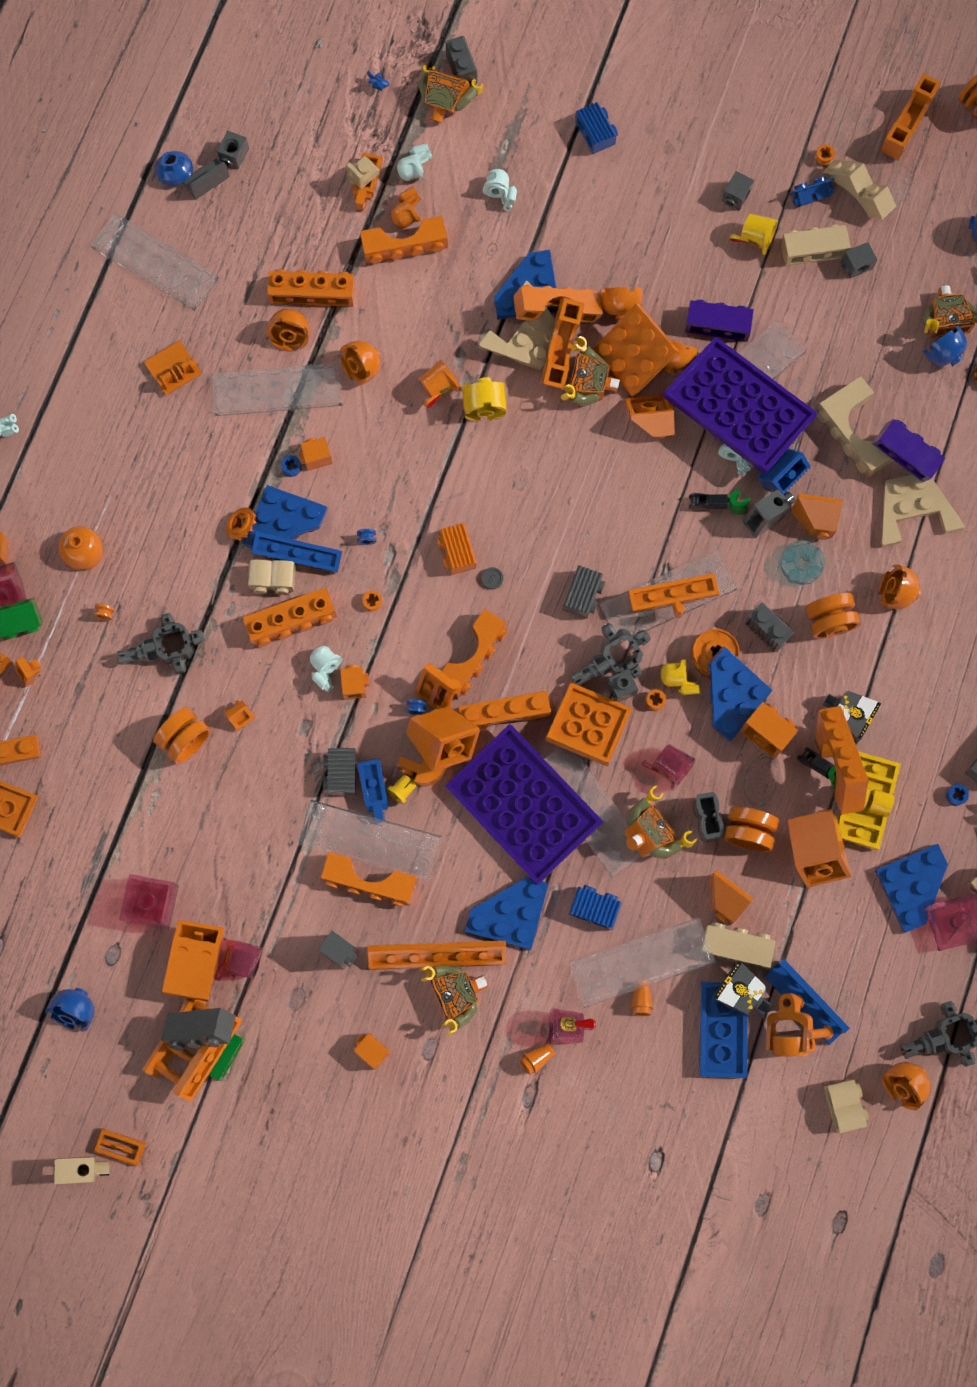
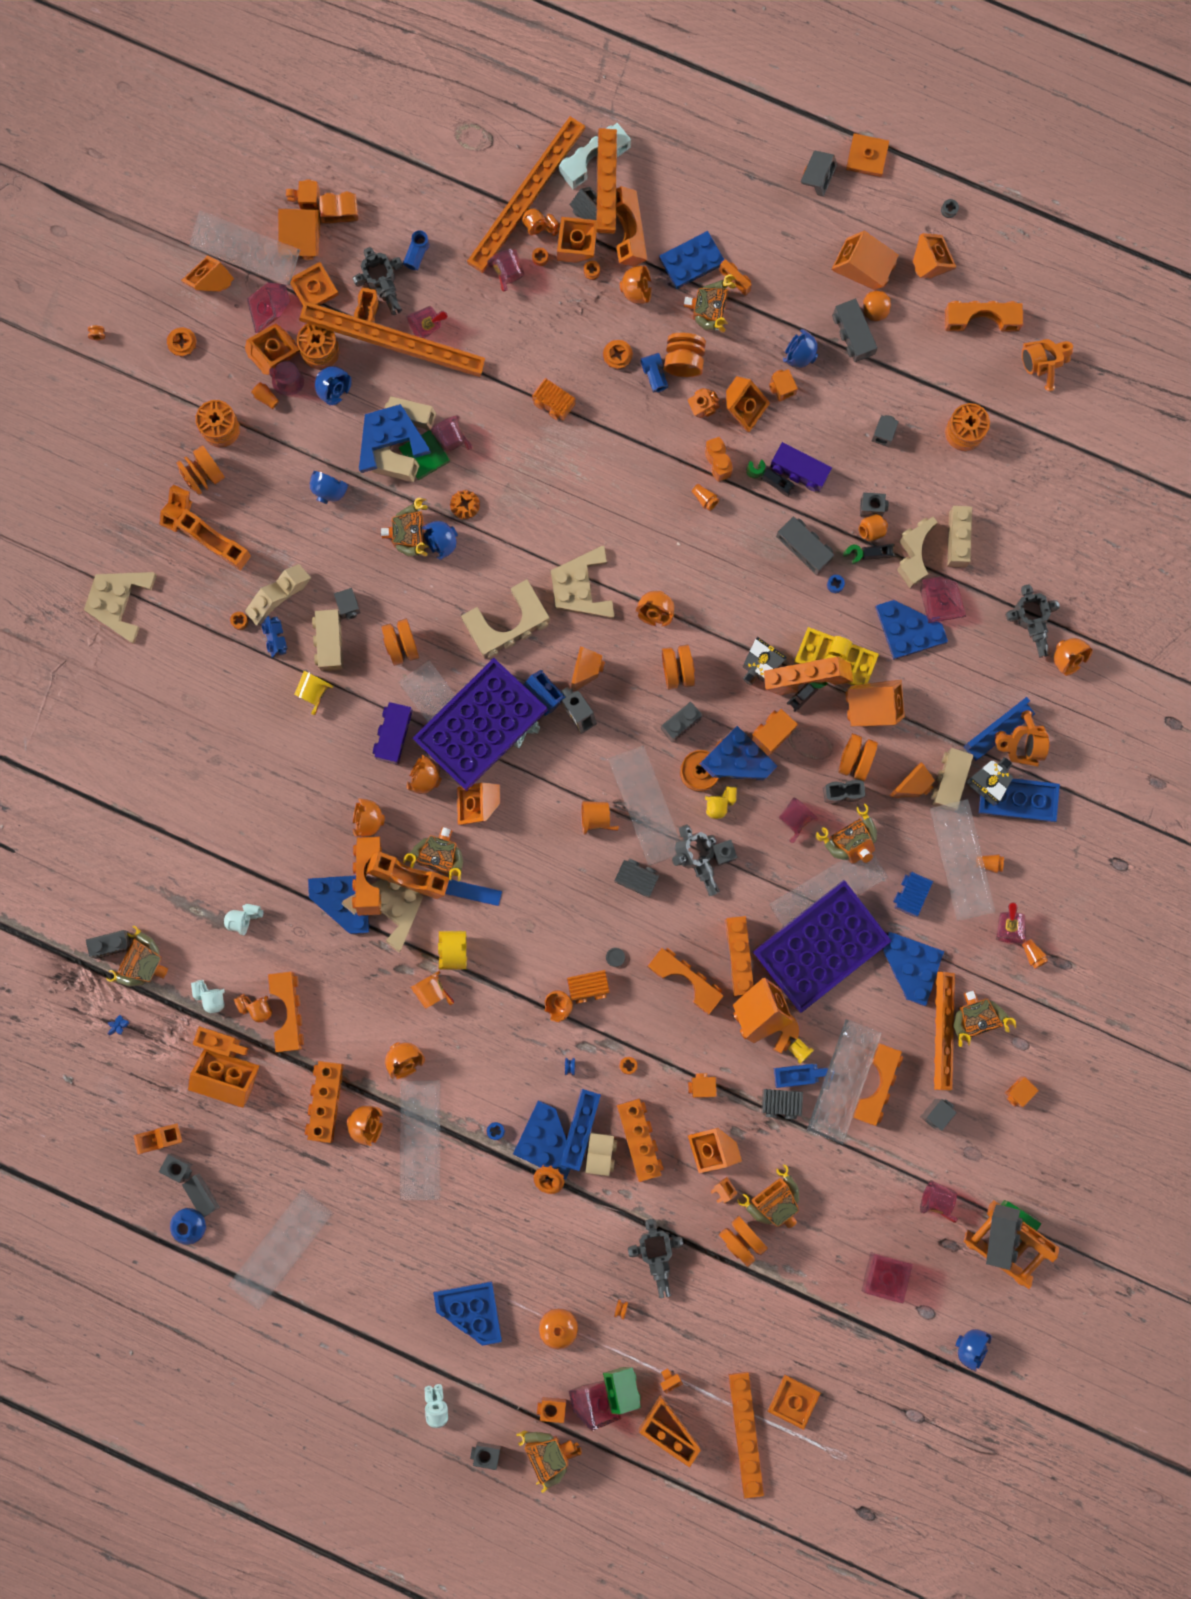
camera: 85 degrees left, 5 degrees up
(67, 1170) = (1105, 1354): tan torso -> none
(96, 457) = (471, 1310): none -> blue plate
(138, 1153) = (1075, 1324): orange tile -> none
(173, 367) = (389, 1236): orange hinge -> none
(193, 960) = (941, 1240): orange slope -> none
(227, 771) = (776, 1202): none -> torso
(261, 126) = (157, 1138): none -> orange brick
(283, 700) = (713, 1150): none -> orange slope
(315, 453) = (487, 1108): orange brick -> none
(325, 663) = (683, 1111): light aqua piece -> none
(327, 188) = (223, 1078): none -> orange slope
(361, 172) = (215, 1046): tan bracket -> none
(415, 707) = (729, 1033): blue bush -> none
(430, 685) = (712, 1017): orange plate -> none
(433, 518) = (558, 1005): none -> orange hair
(551, 422) = (473, 892): none -> blue sticker
(588, 724) = (756, 884): orange plate -> none
(595, 127) = (190, 825): blue brick -> none
(636, 349) = (418, 810): orange plate -> none
(649, 540) = (596, 816): none -> orange hat
(662, 697) = (733, 820): orange bush -> none
(673, 594) = (647, 800): orange plate -> none
(719, 501) = (562, 753): black piece -> none
(737, 190) = (268, 703): dark grey brick -> none
(810, 553) = (631, 678): clear light blue plate -> none
(822, 314) = (399, 642): none -> orange wheel
(831, 27) = (110, 596): none -> tan wing
(845, 1106) = (1085, 707): tan brick -> none
(909, 450) = (536, 583): dark purple brick -> none
(949, 77) = (177, 503): none -> orange brick

